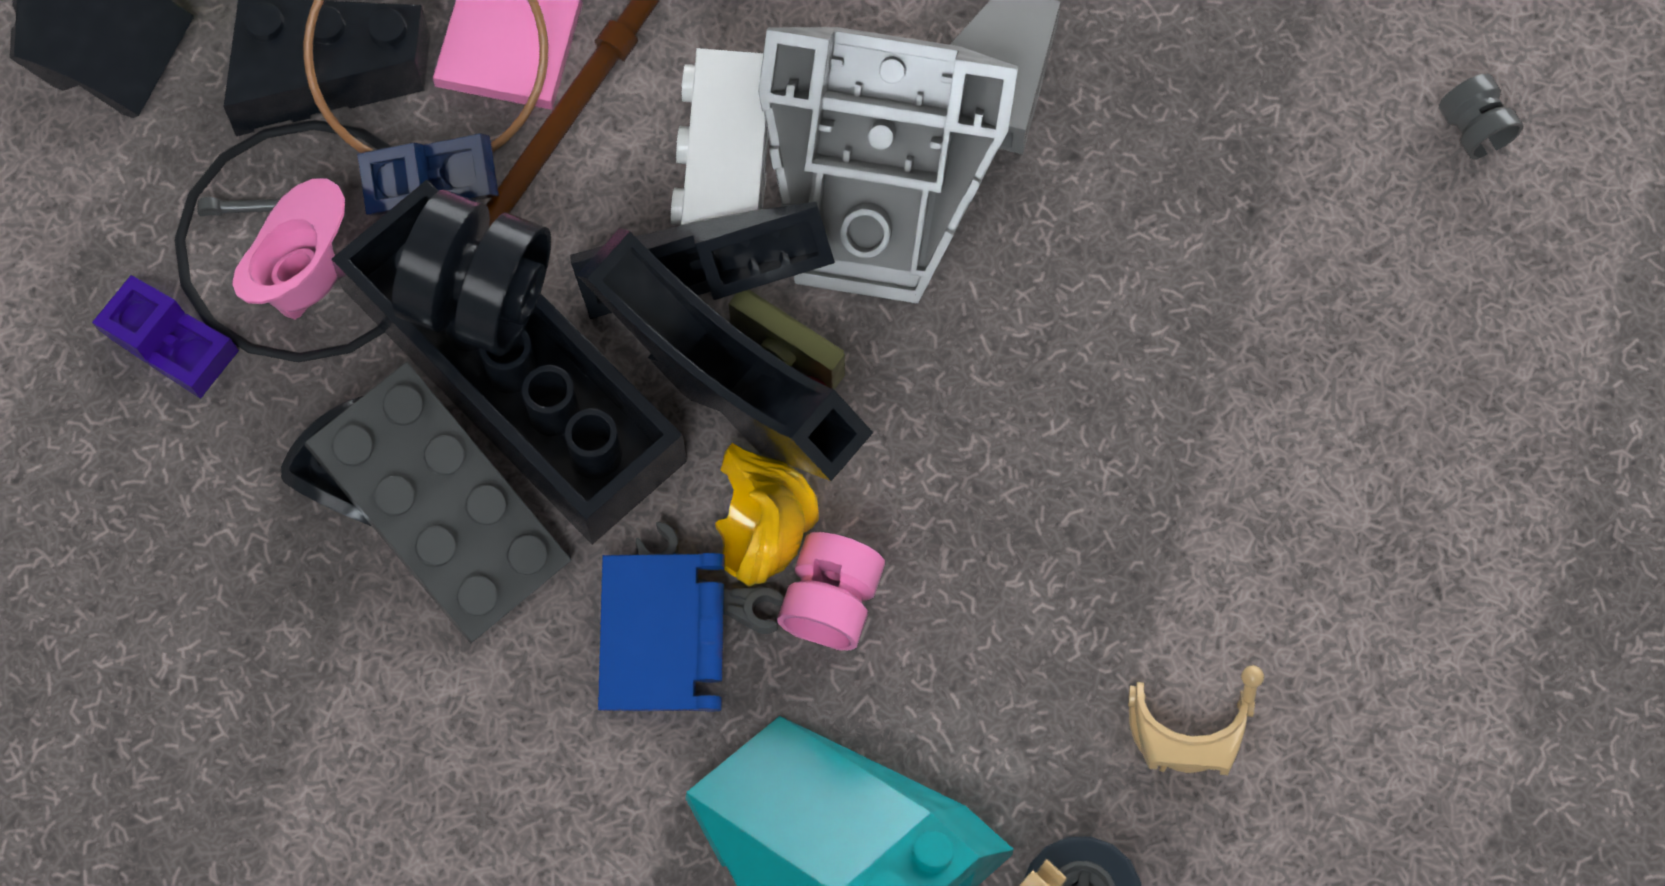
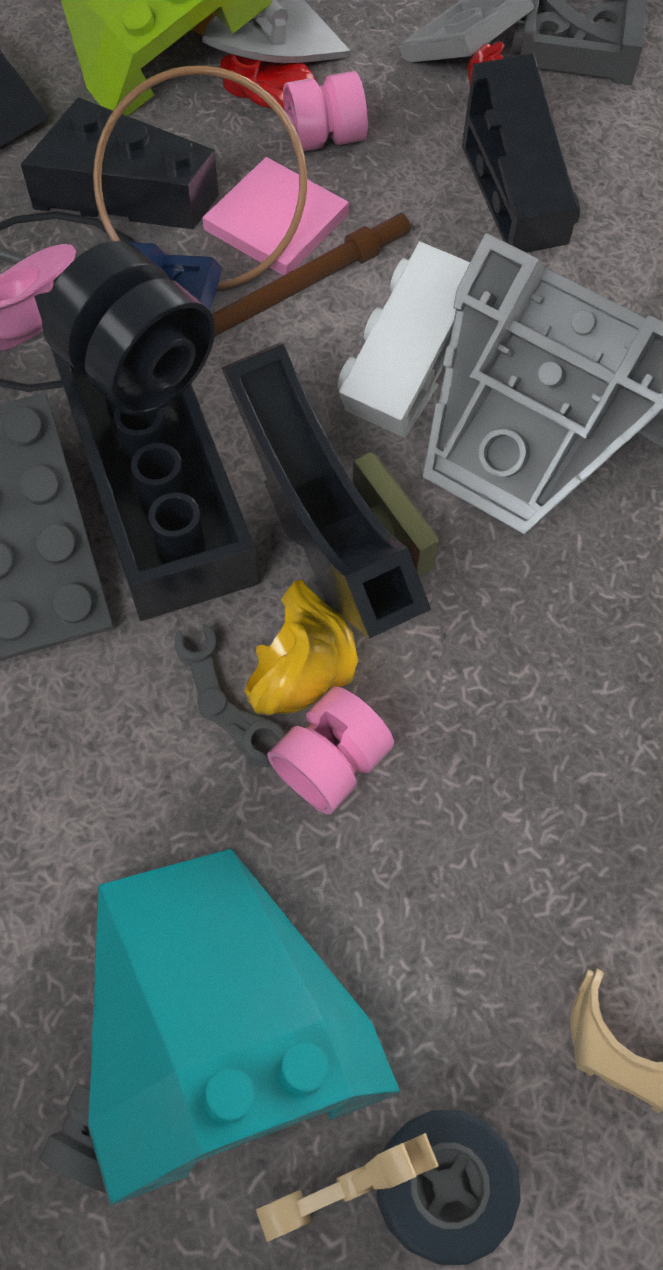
camera: 20 degrees right, 5 degrees down
(660, 632) = (157, 723): blue piece -> none
(731, 251) = (385, 419): black slope -> none

